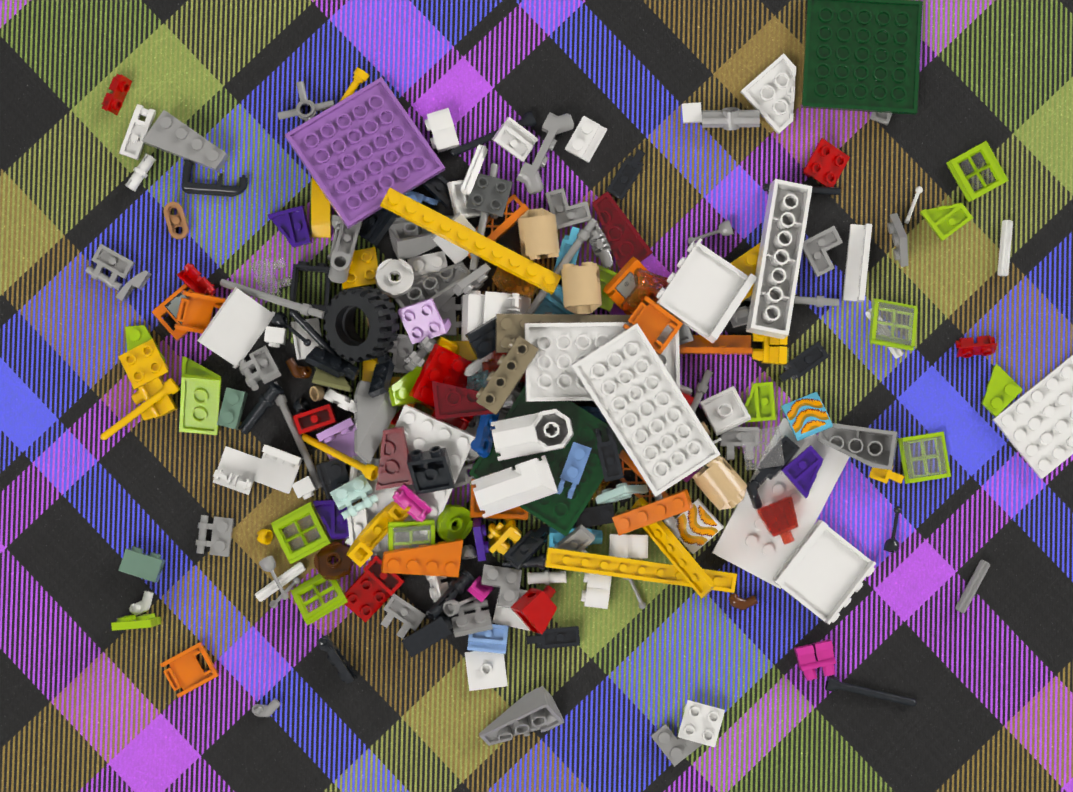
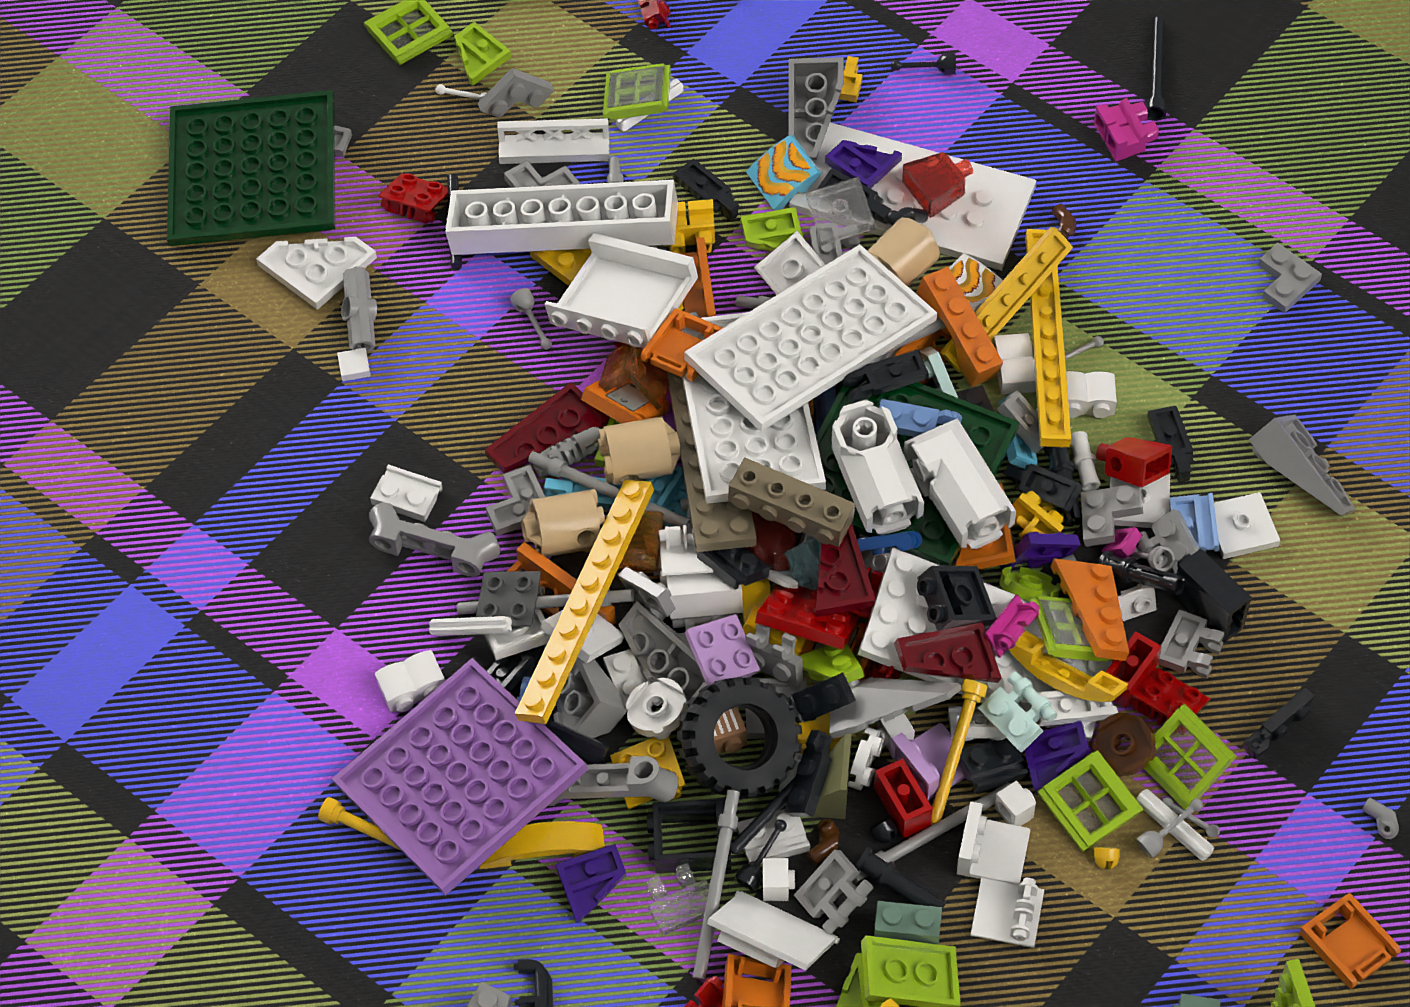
camera: 95 degrees left, 30 degrees down
(221, 535) = (1121, 923): light grey plate -> none
(304, 102) = (397, 893): light grey bar -> none
(317, 393) = (865, 807): tan hinge -> none
(336, 223) = (578, 812): light grey hinge -> none
(515, 139) = (416, 578): white plate -> none
(527, 120) = (384, 569): black piece -> none
(626, 175) = (457, 431): black hinge -> none
(701, 723) = (1251, 246): white hinge -> none
(824, 572) = (1003, 130): white panel -> none
(924, 457) = (817, 38): clear piece -> none

